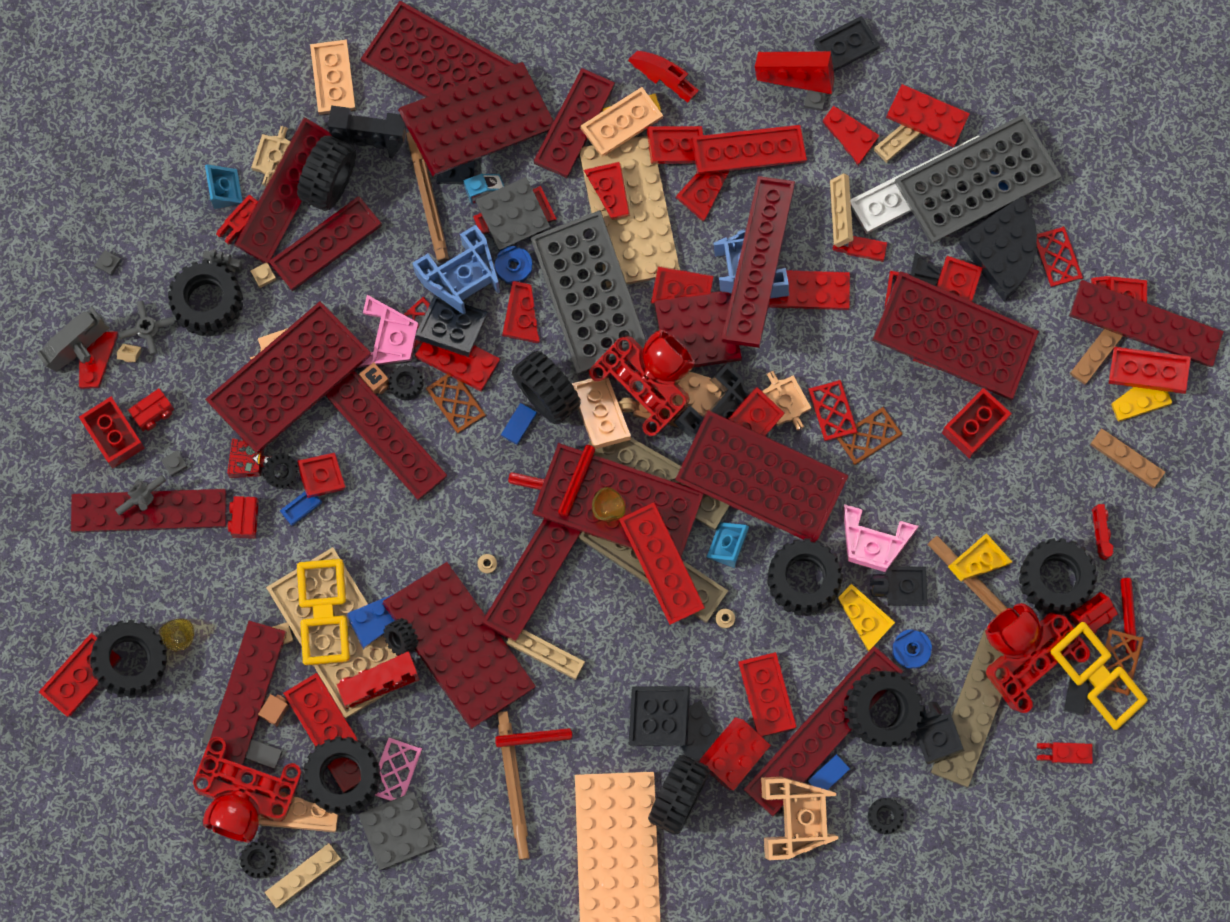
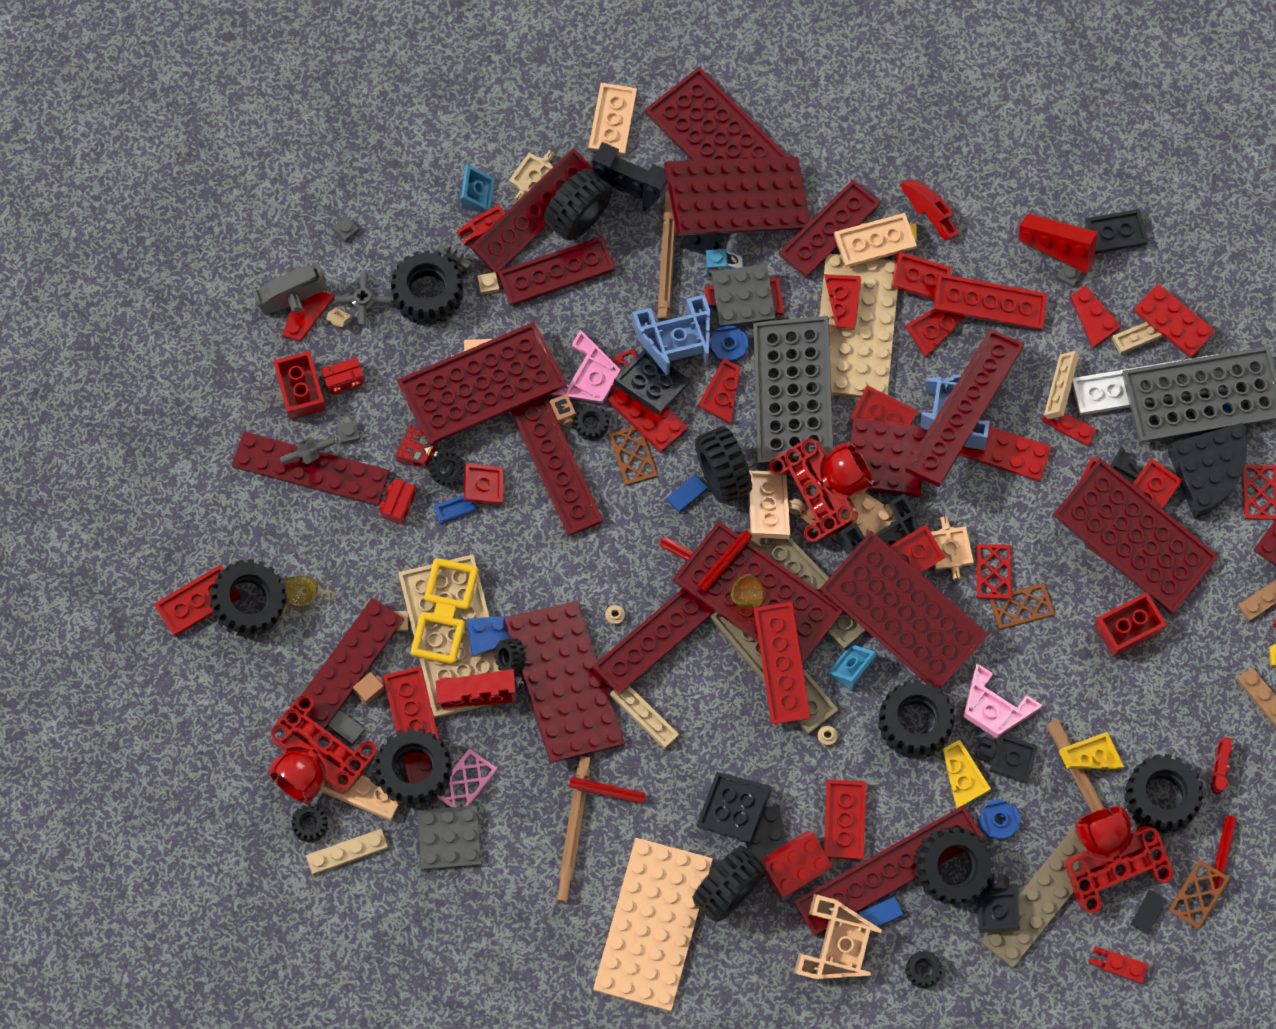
camera: 15 degrees right, 5 degrees down
(1095, 612) = (1188, 841): red brick -> none
(1099, 675) = (1174, 900): yellow bar -> none

